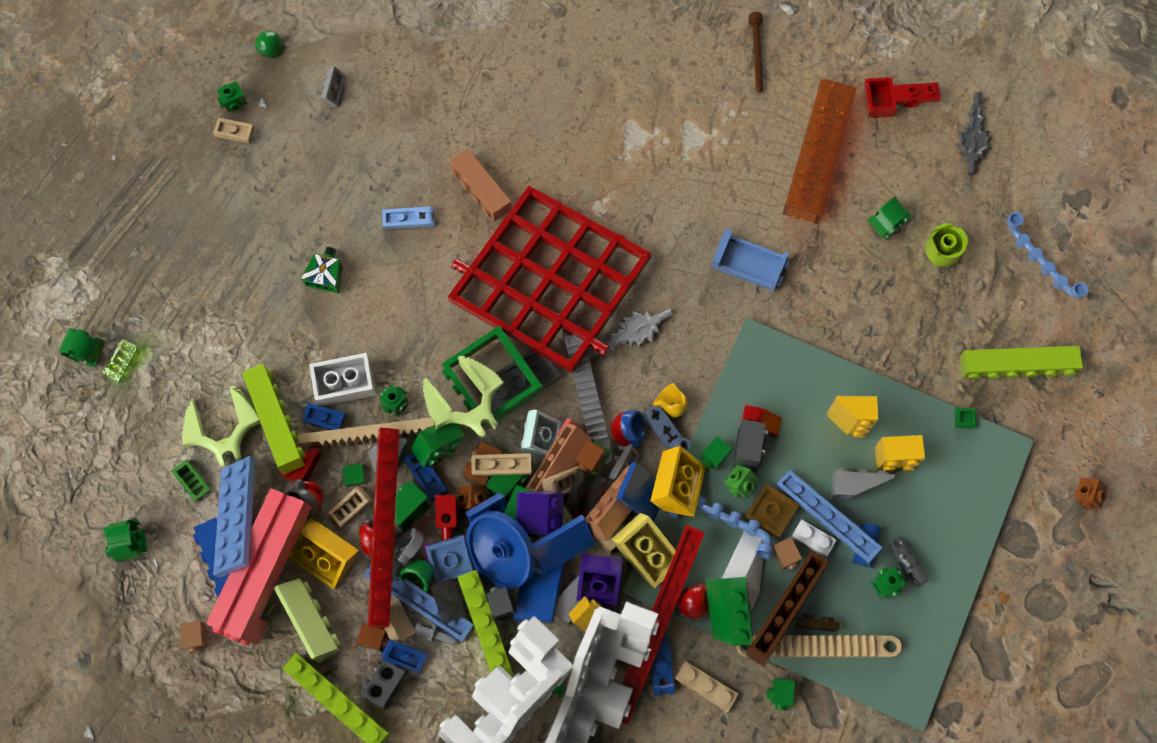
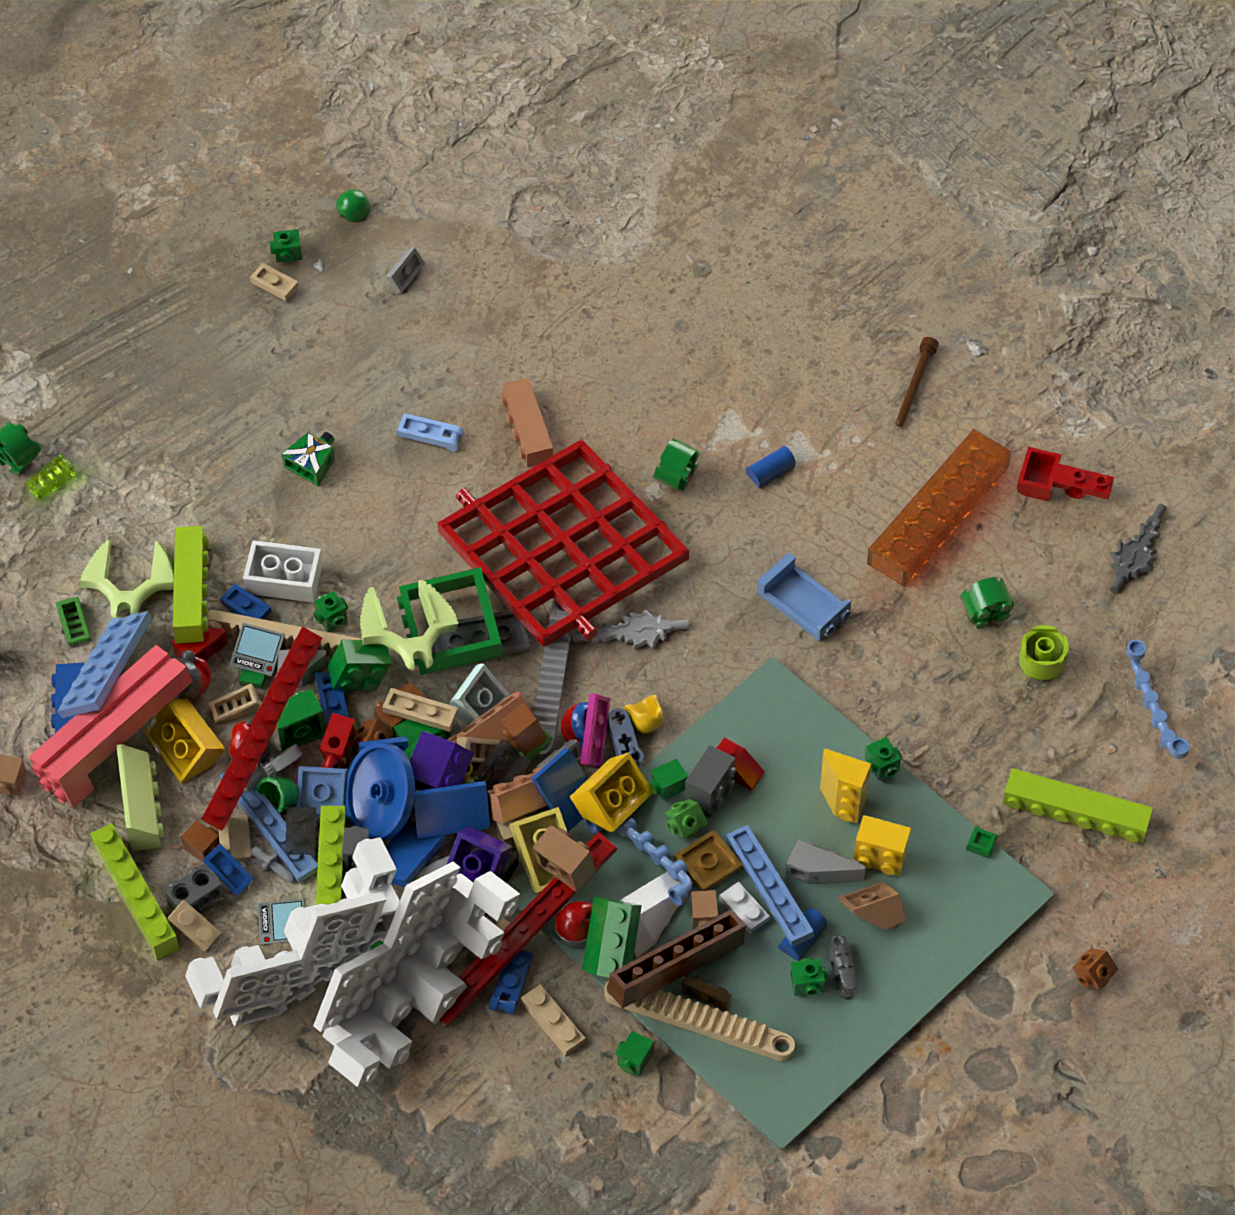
camera: 20 degrees right, 15 degrees down
(349, 455) = (257, 649): none -> sticker
(396, 715) = (193, 925): none -> tan plate
(460, 679) = (273, 919): none -> sticker
(611, 183) = (676, 464): none -> green brick
(642, 432) = (595, 731): none -> dark pink tile
(673, 561) = (564, 857): none -> medium nougat brick
(679, 158) = (771, 466): none -> blue brick
(868, 377) = (883, 757): none -> green brick
(911, 502) = (876, 904): none -> medium nougat slope

